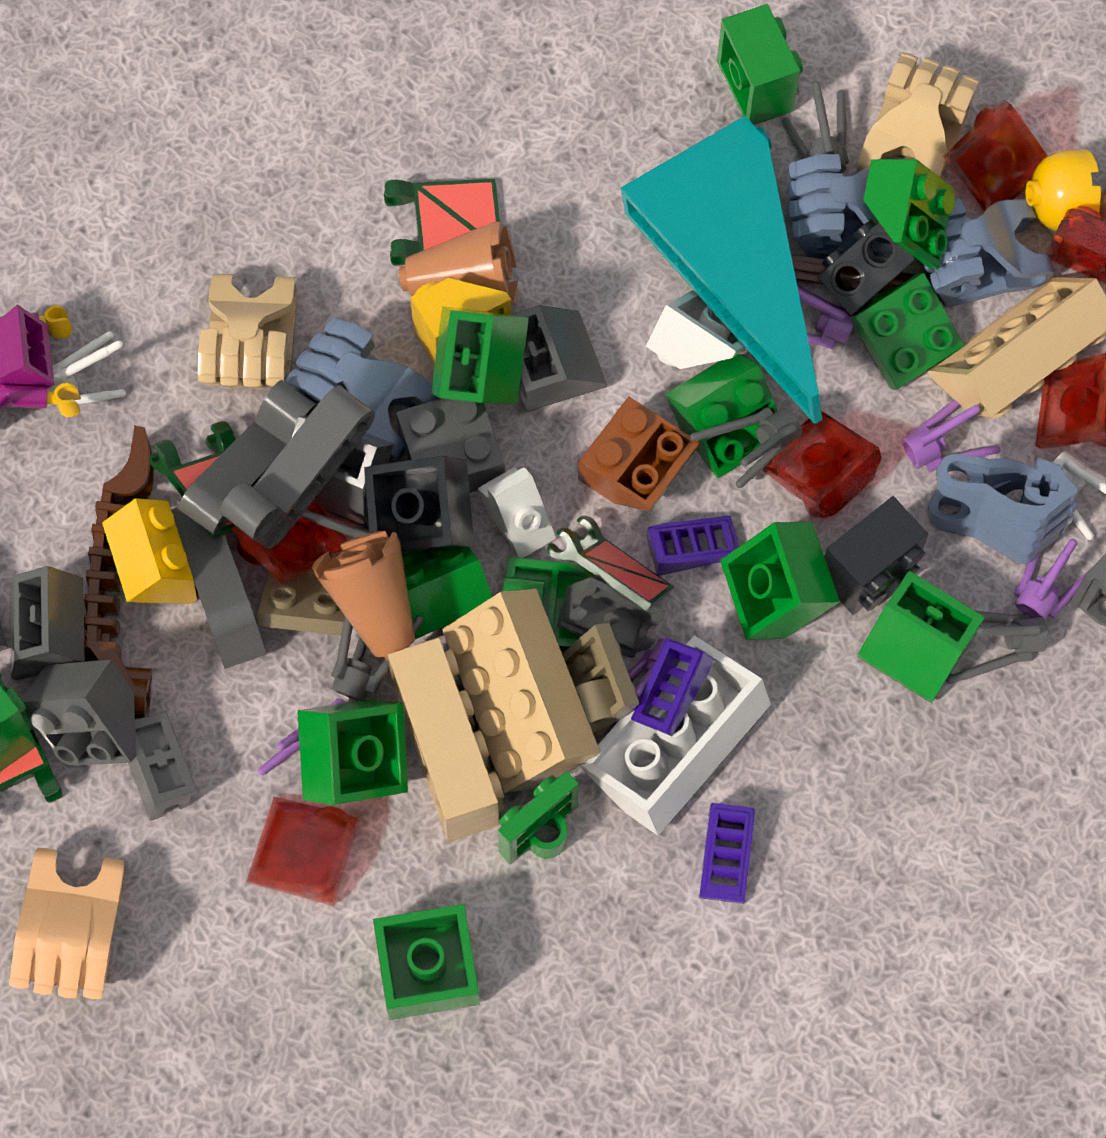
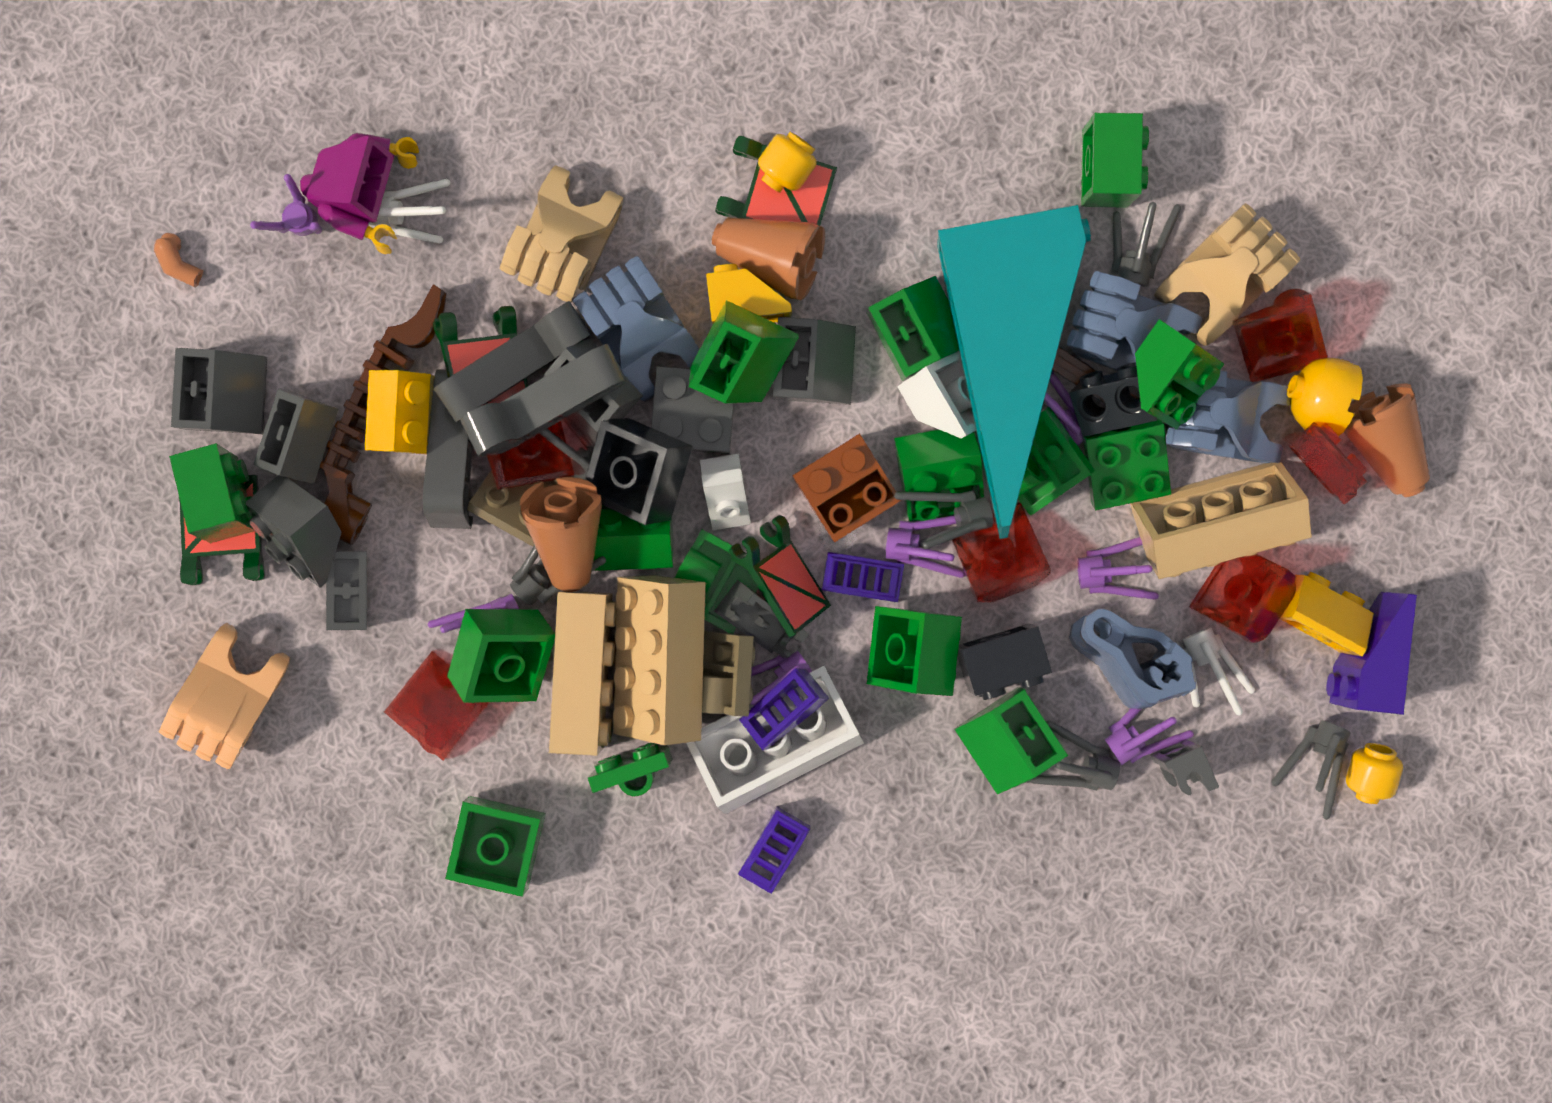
camera: 25 degrees right, 20 degrees up
(444, 183) = (787, 162): none -> yellow head
(633, 286) = (915, 326): none -> green slope
(722, 493) = (905, 546): none -> medium lavender plant
(837, 358) = (1053, 464): none -> green plate

